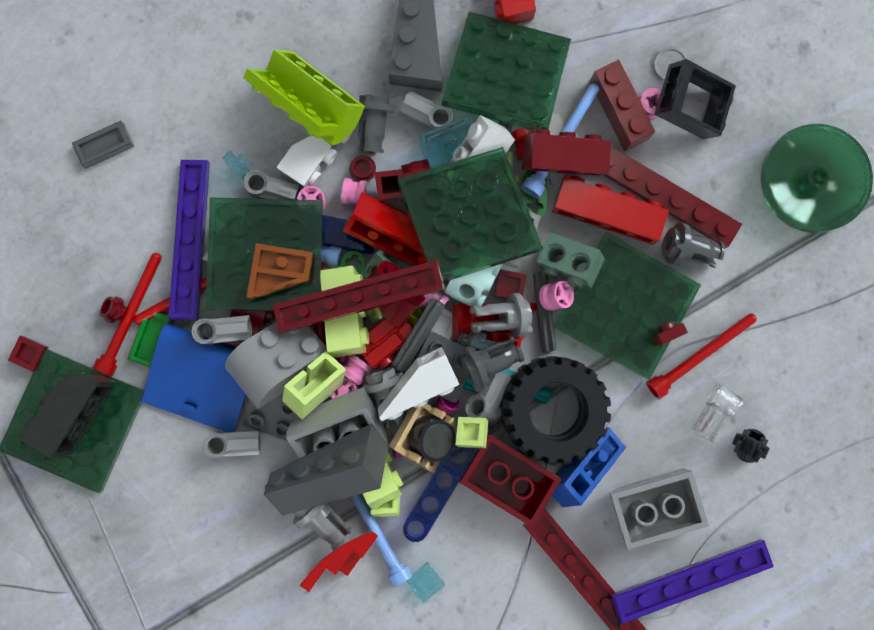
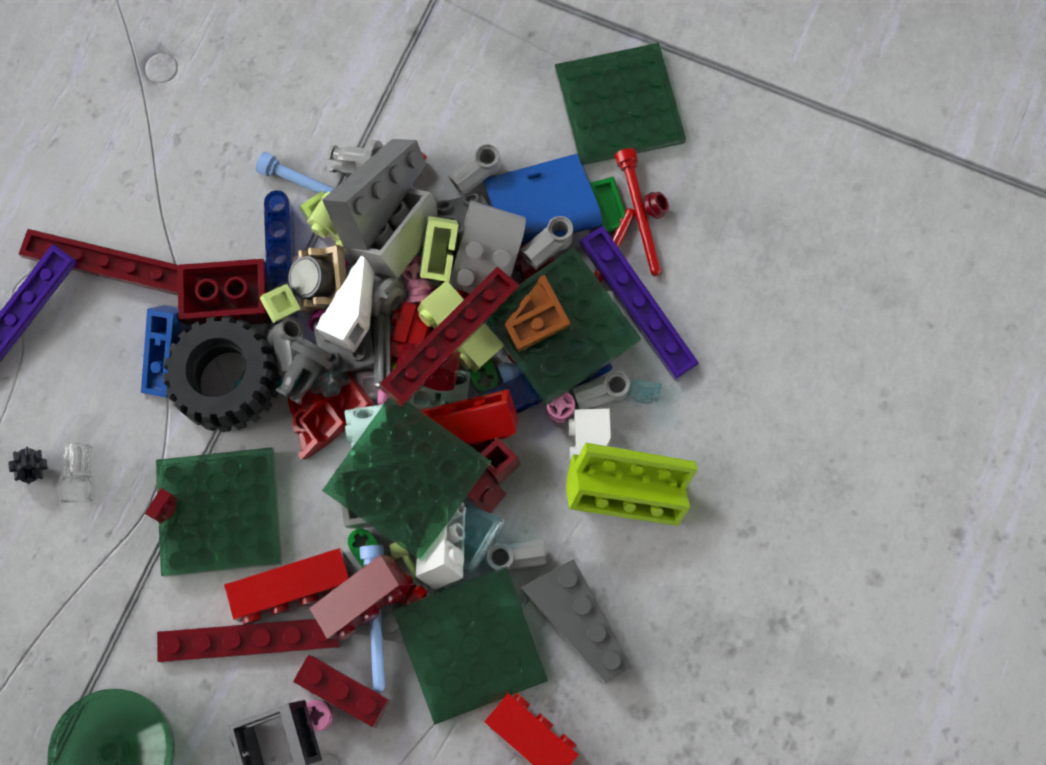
camera: 150 degrees right, 10 degrees down
(27, 353) = (695, 126): dark red plate -> none
(67, 414) = (619, 96): pearl dark grey brick -> none
(103, 144) = (774, 331): dark grey tile -> none
(341, 559) = (325, 134): red slope -> none
(352, 190) = (529, 439): bright pink wheel -> none
(362, 168) = (538, 467): dark red plate -> none
(373, 122) = (554, 505): dark grey piece -> none
(425, 582) = (241, 174): clear light blue plate -> none
(509, 282) = (332, 455): dark red plate -> none
(513, 316) = (319, 417): light grey piece -> none
(545, 317) = (289, 456): dark grey axle -> none
(556, 295) = (286, 472): bright pink wheel -> none
(573, 255) = (295, 516): sand green brick -> none
(658, 508) = (80, 355): light grey brick -> none
(660, 385) = (142, 465): red piece -> none
(682, 245) = (200, 598): dark grey piece -> none

